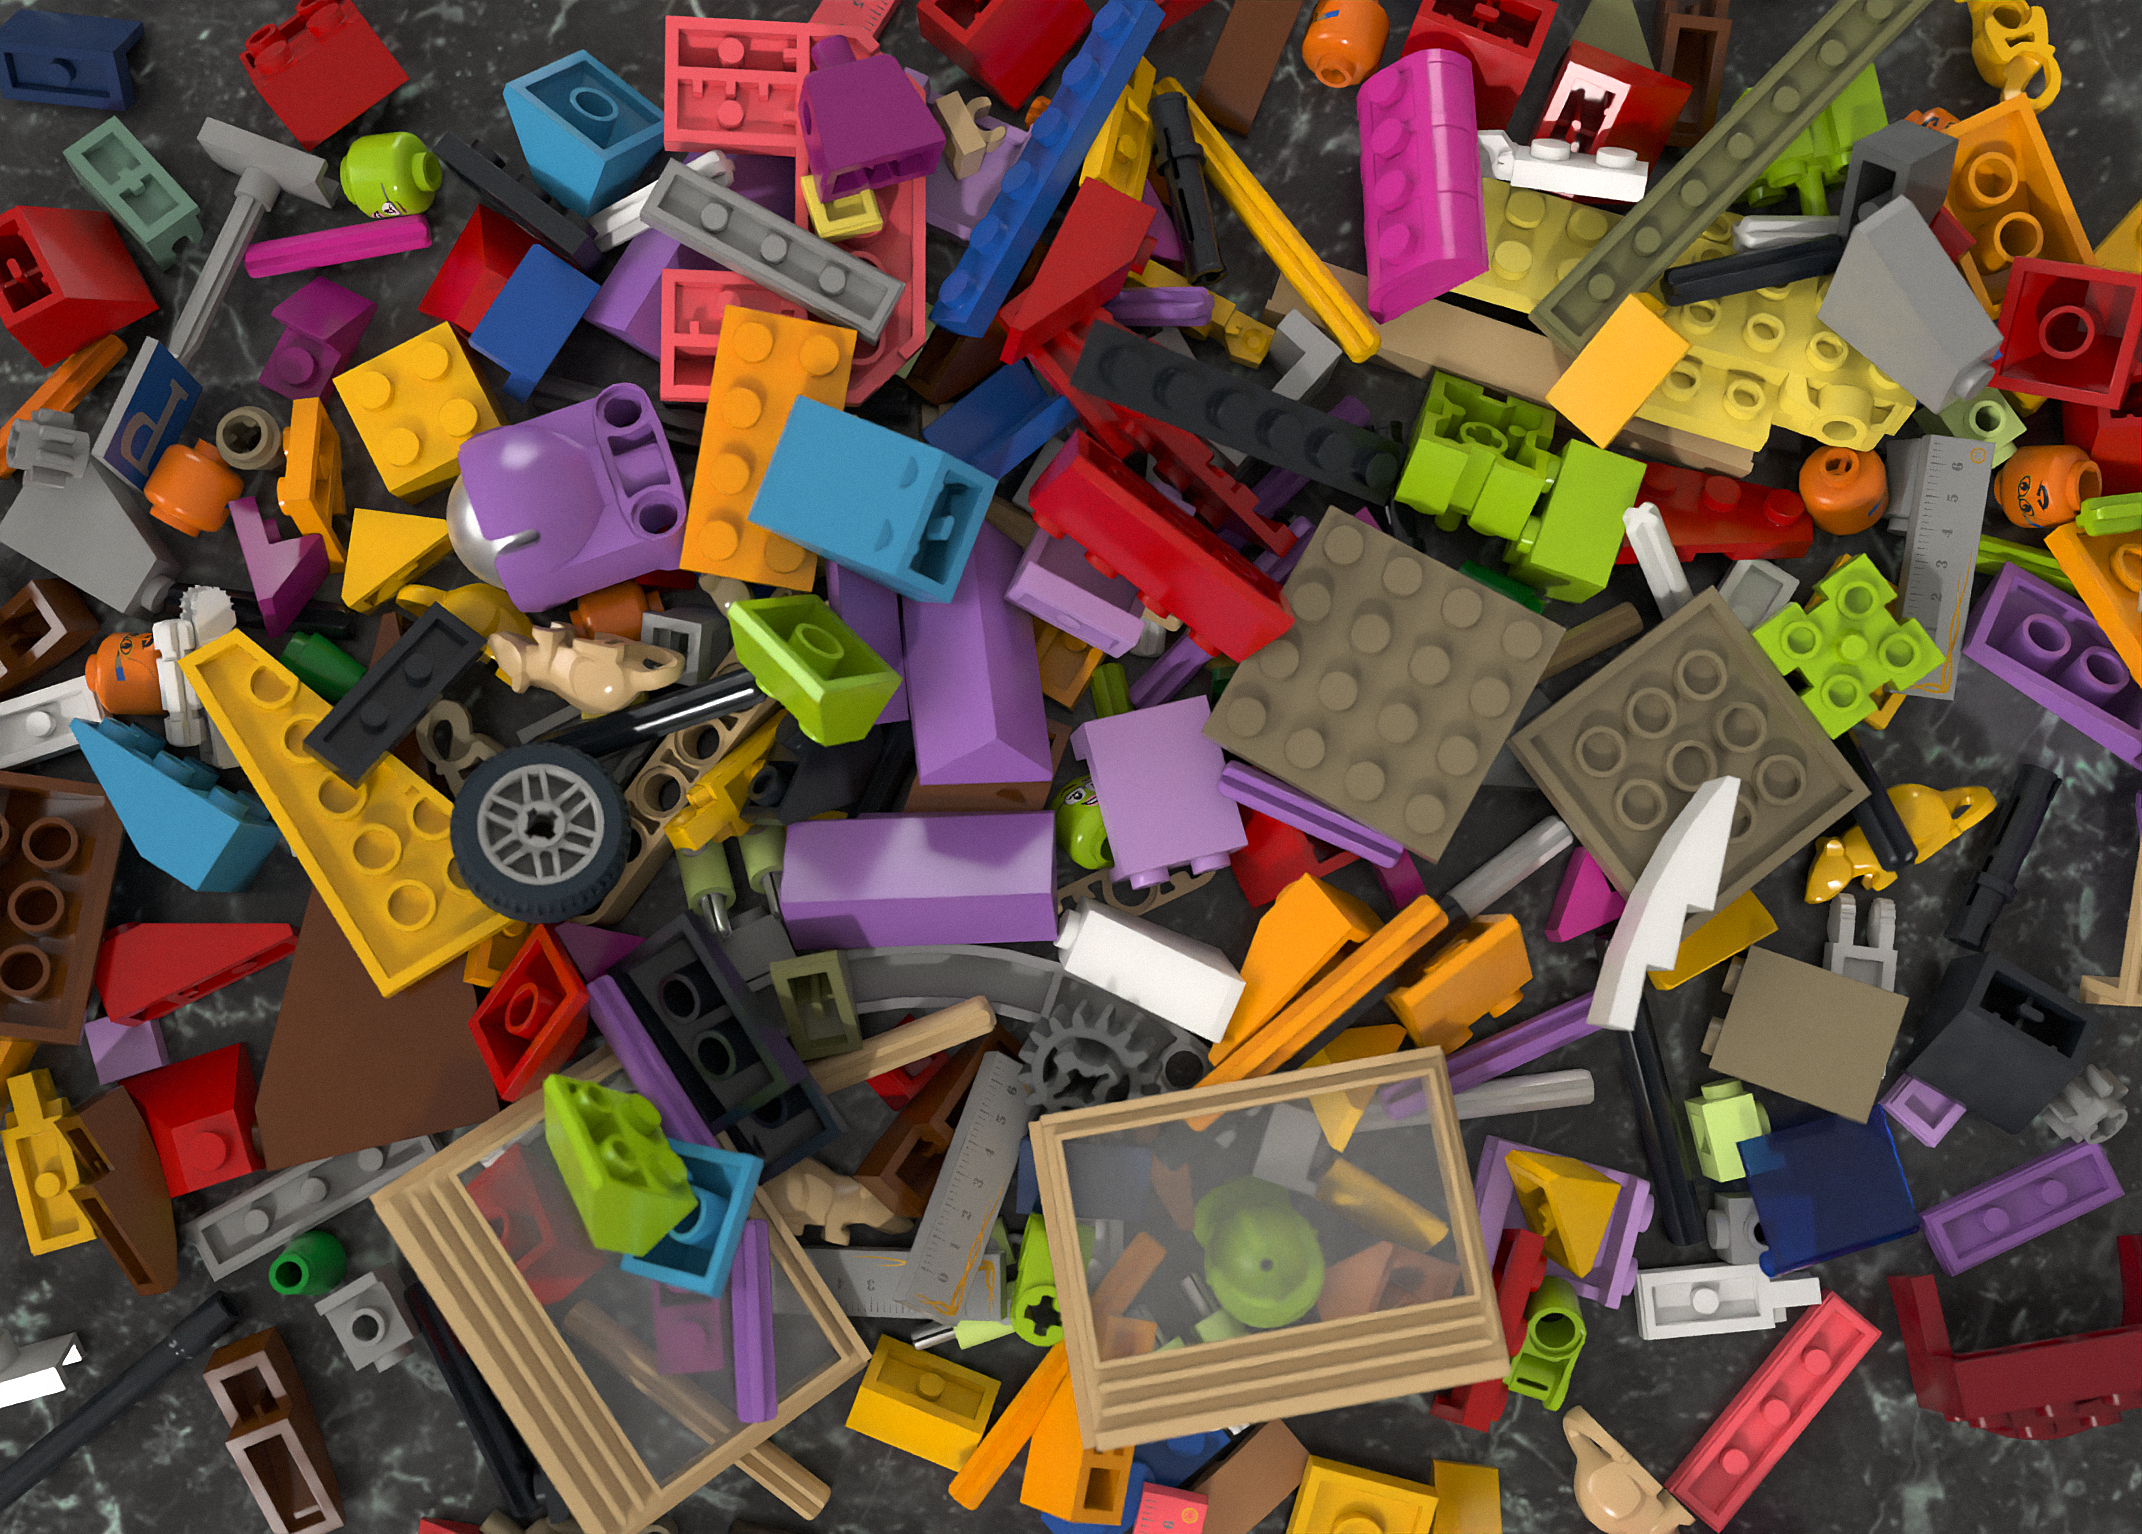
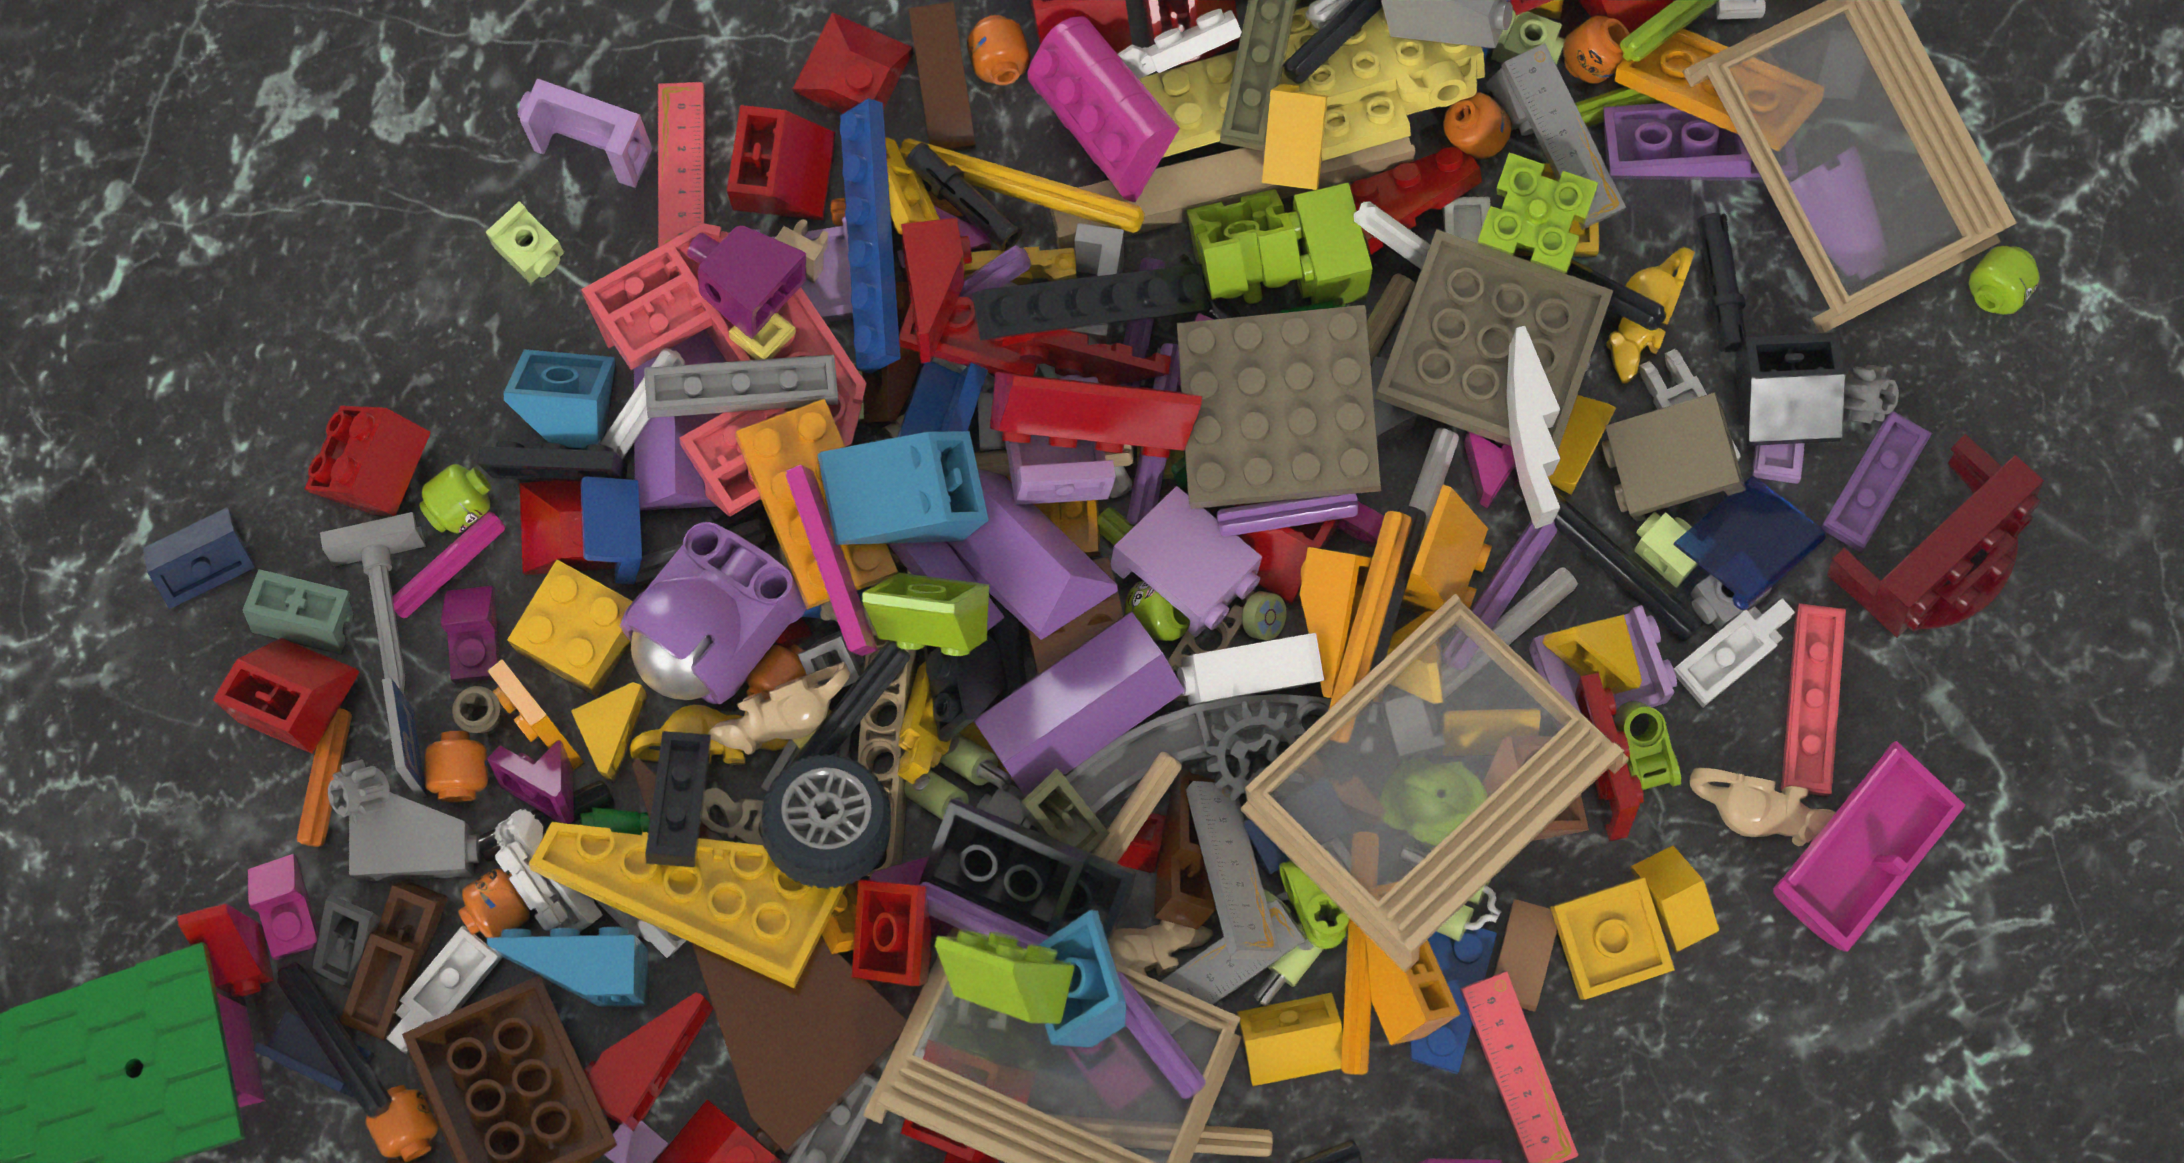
camera: 30 degrees left, 10 degrees down
(728, 534) = (830, 561): none -> dark pink tile
(1210, 904) = (1264, 615): none -> yellowish green tile

